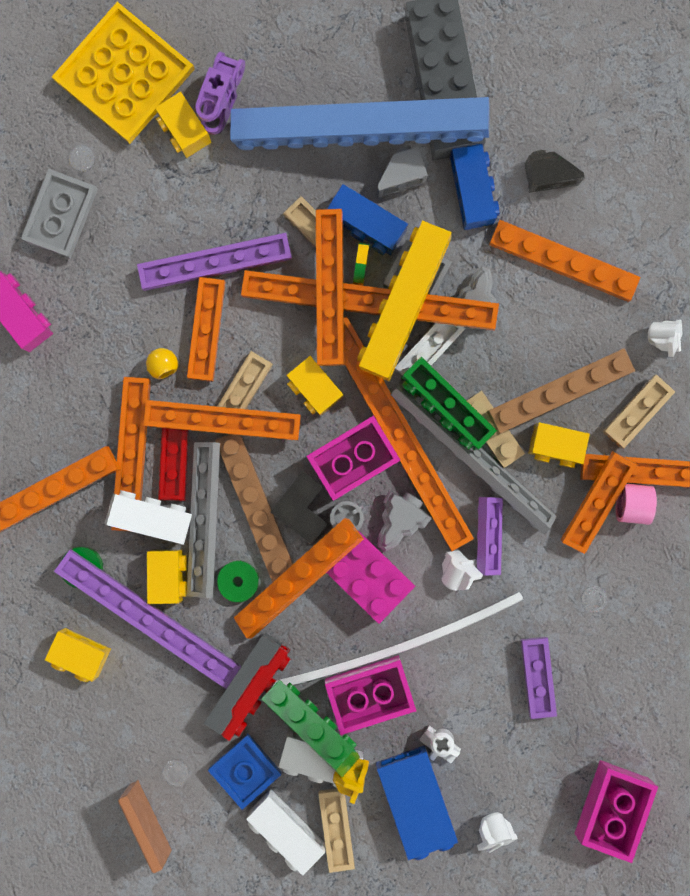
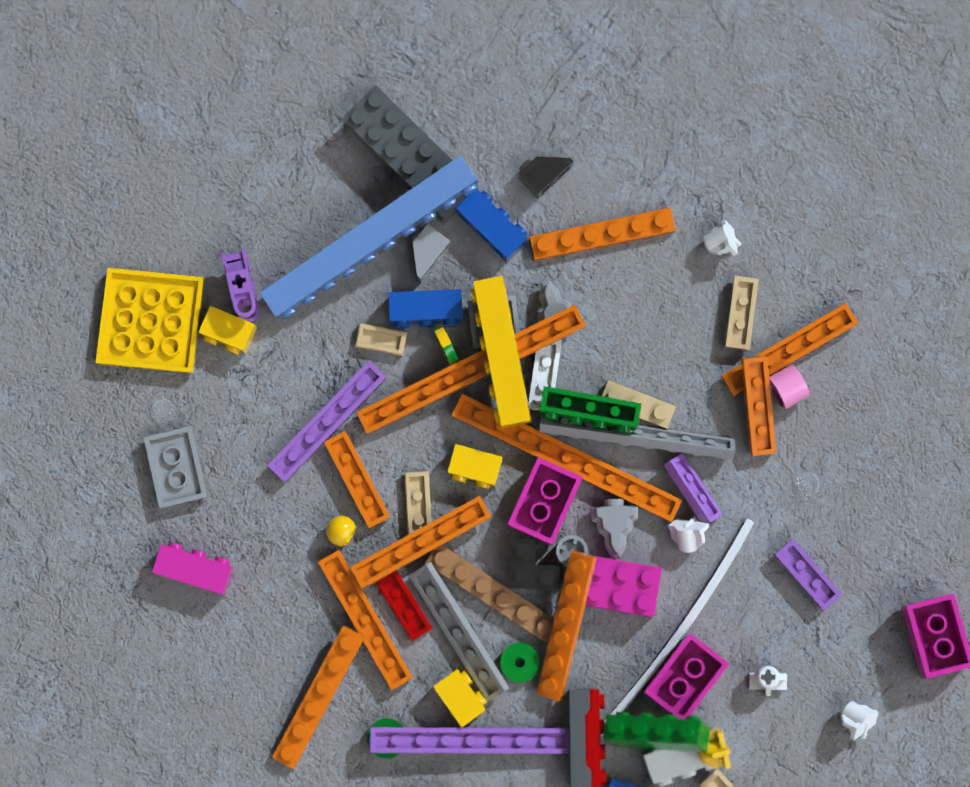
camera: 40 degrees left, 5 degrees down
(148, 517) = (415, 658): white brick -> none
(329, 287) = (435, 380): orange plate -> none
(416, 803) = (781, 739): blue brick -> none
(558, 444) = (697, 381): yellow brick -> none
(560, 391) = (670, 338): medium nougat plate -> none

